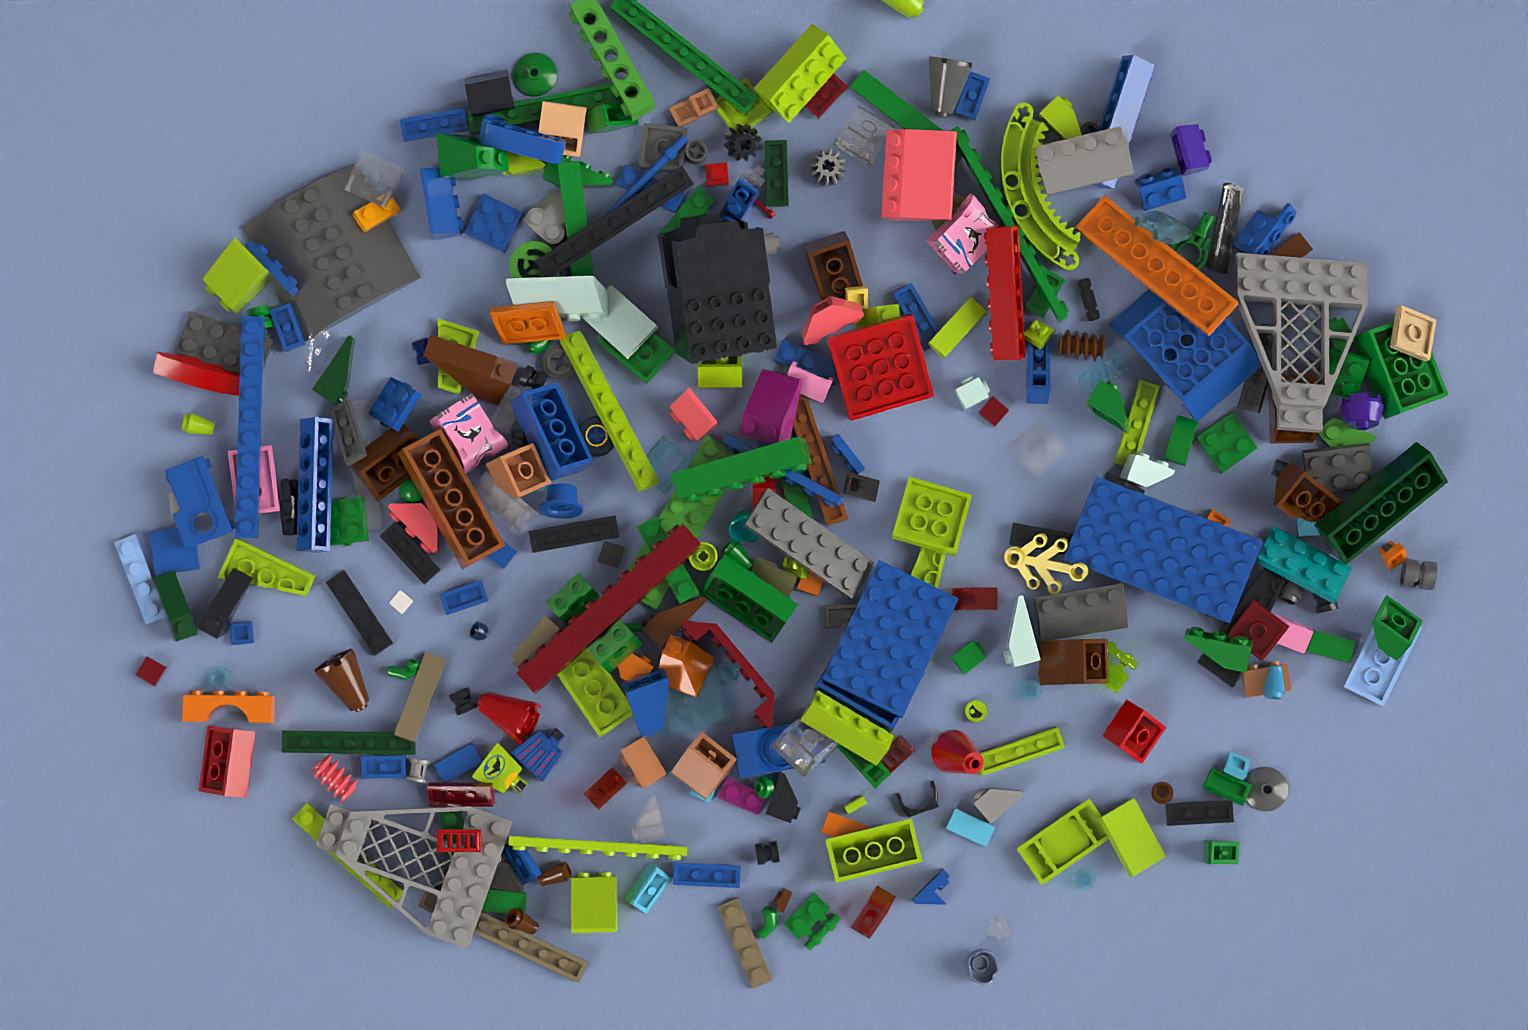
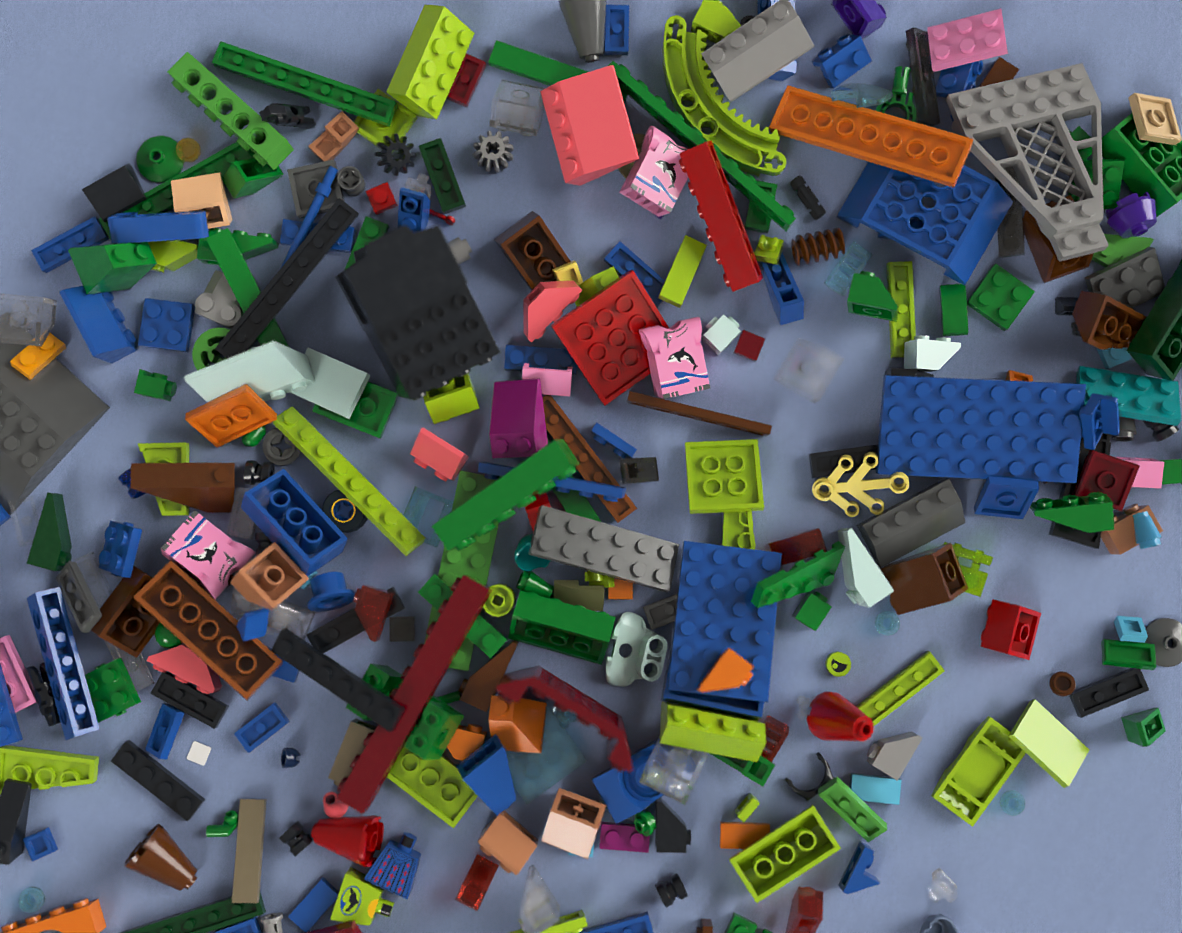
camera: 15 degrees left, 0 degrees up
(380, 572) = (164, 731): none -> blue plate
(468, 273) = (155, 385): none -> green brick
(492, 505) = (253, 624): none -> blue slope
(505, 683) = (336, 809): none -> coral cone
(548, 575) = (338, 680): none -> black plate
(562, 75) = (188, 150): none -> clear yellow plate
(594, 527) = (372, 609): none -> clear red slope
(661, 78) = (287, 115): none -> black hinge
(808, 622) = (624, 670): none -> light aqua piece
(875, 680) = (726, 673): none -> orange slope
(925, 401) = (676, 358): none -> bright pink piece
(928, 455) = (699, 414): none -> reddish brown tile
(944, 836) = (852, 809): none -> bright green plate
(967, 623) = (801, 577): none -> green wing
(1167, 616) = (1006, 497): none -> blue plate
(1265, 574) = (1099, 417): none -> blue bracket
(1272, 210) = (967, 40): none -> bright pink plate

